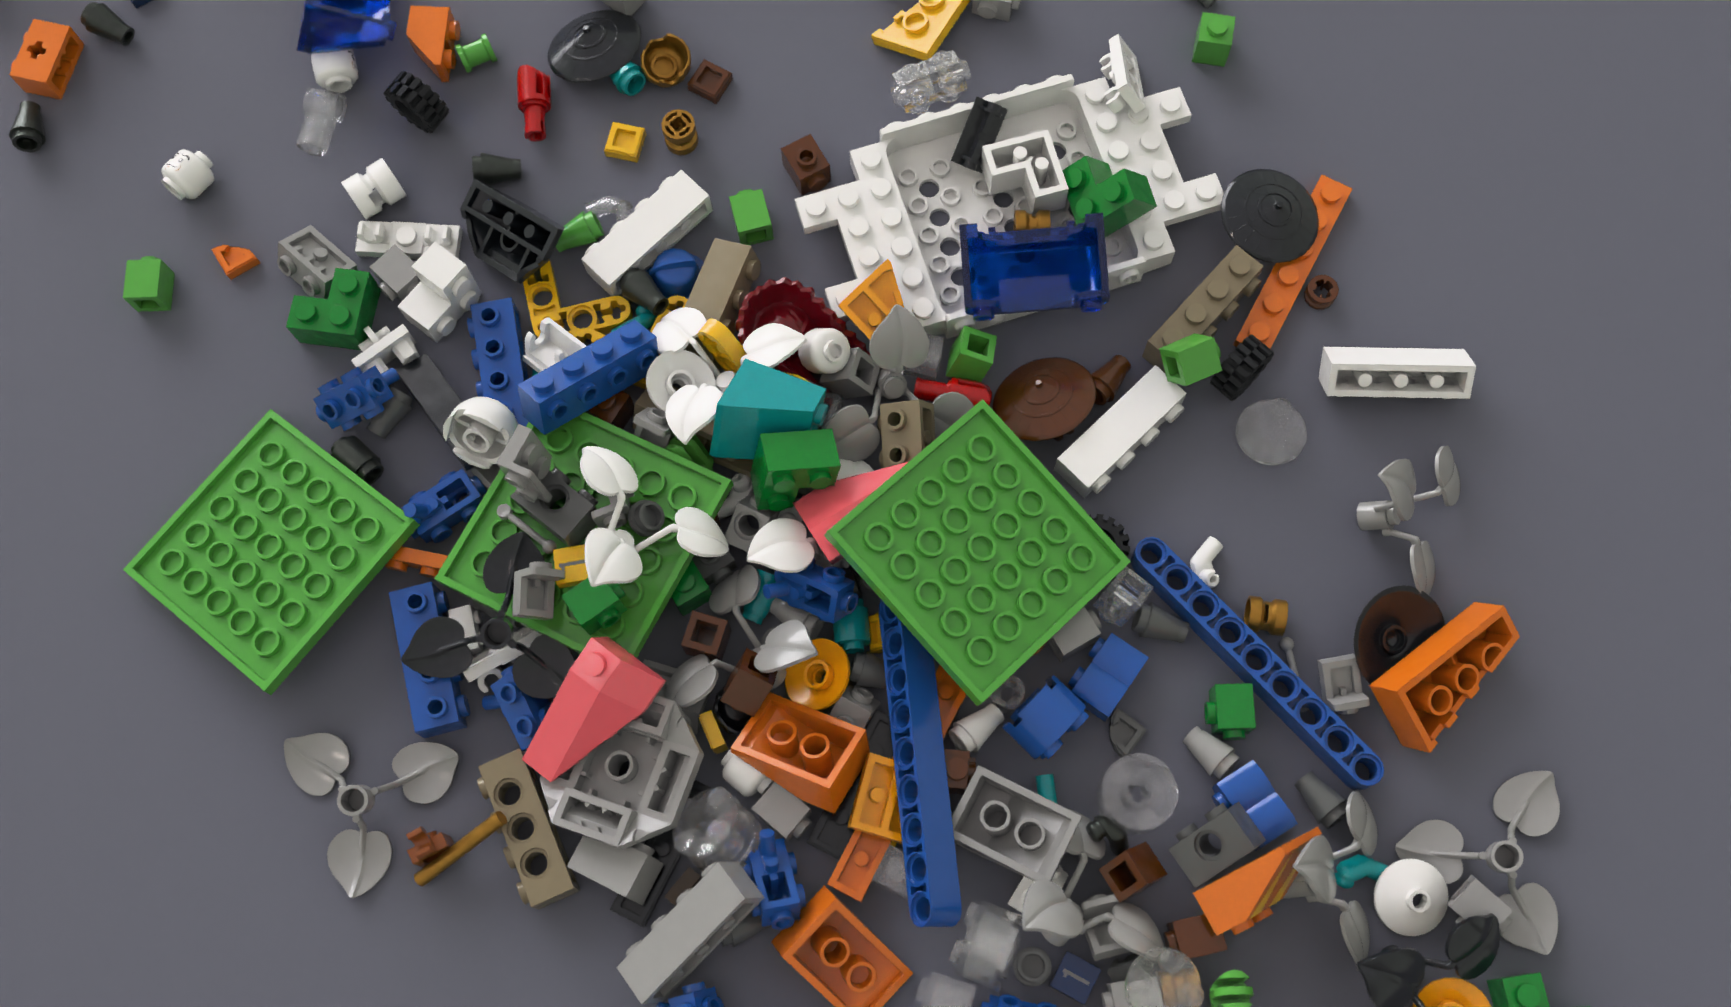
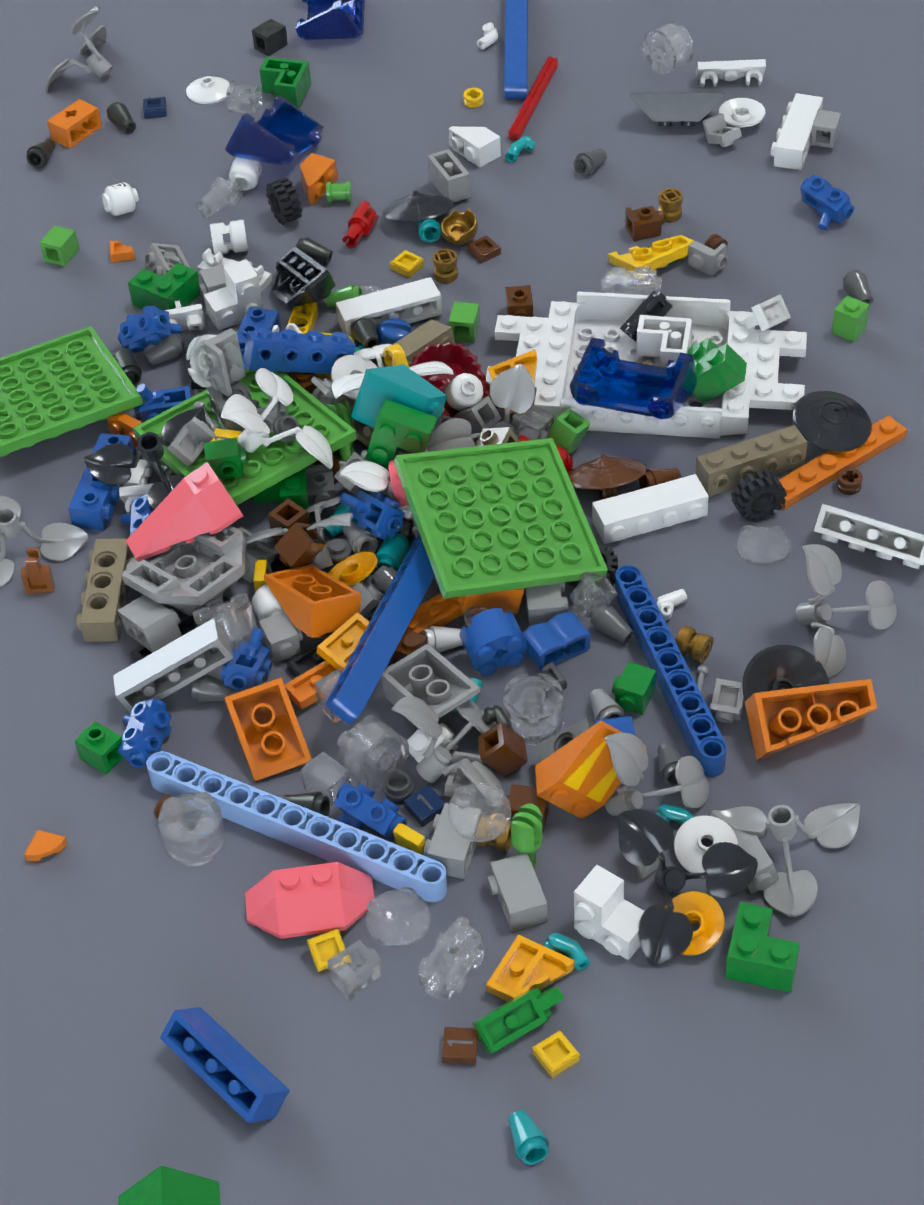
camera: 25 degrees right, 25 degrees down
(460, 848) = (55, 581): pearl gold bar -> none
(1191, 359) = (719, 469): bright green brick -> none

